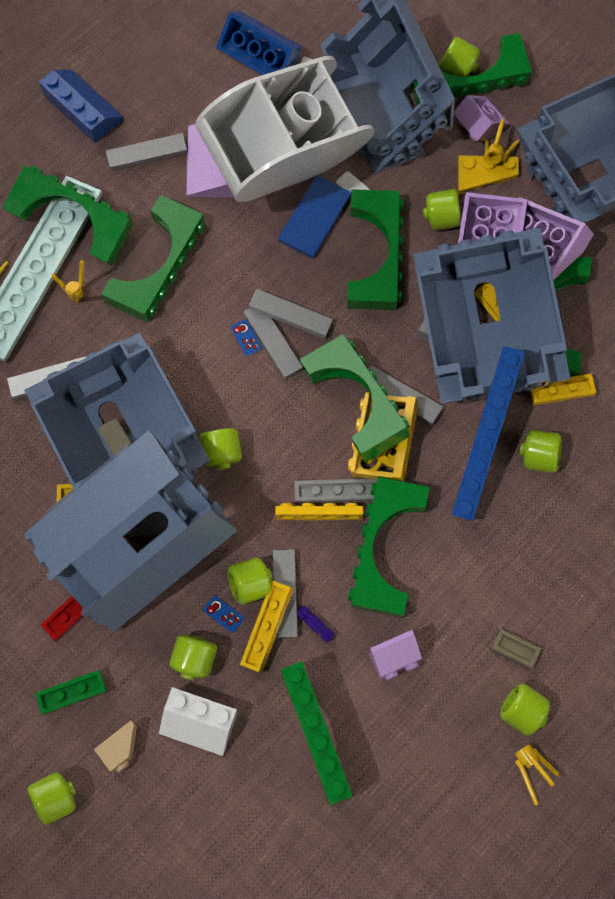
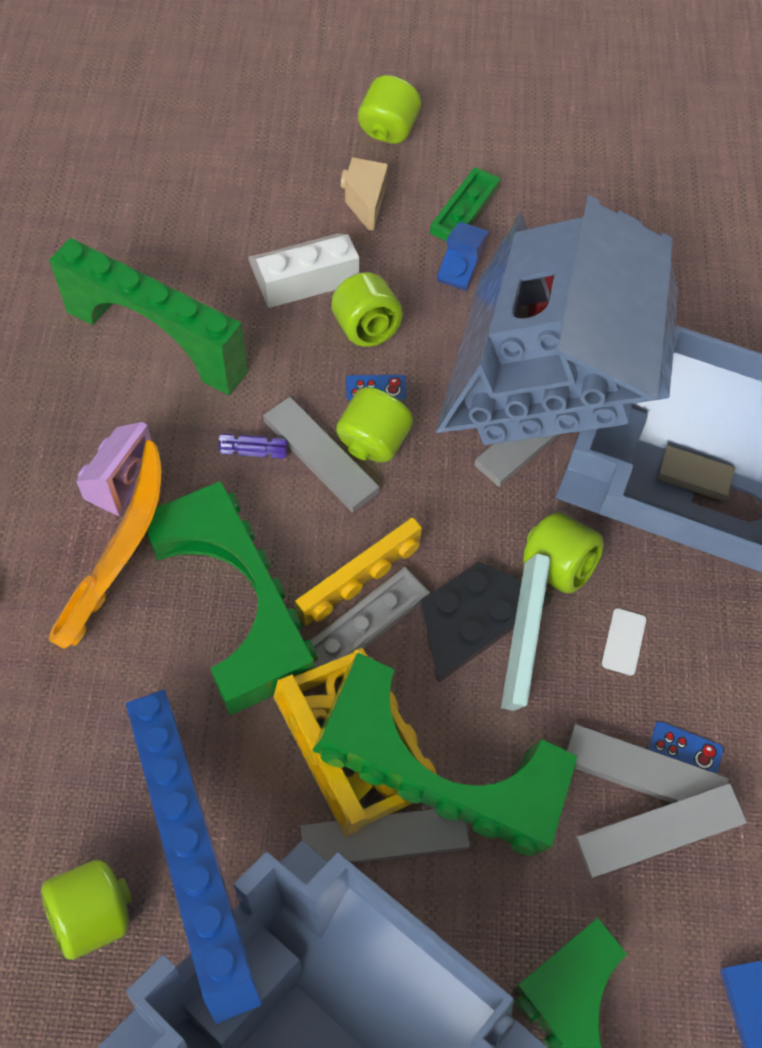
camera: 135 degrees right, 10 degrees down
(107, 654) = (462, 256): none -> blue slope
(227, 397) = (624, 642): none -> white sticker
(266, 627) = (308, 396): yellow plate -> none
(272, 424) = (525, 633): none -> light aqua tile
(282, 456) = (470, 616): none -> black wing
(424, 606) = (90, 592): none -> light orange plant

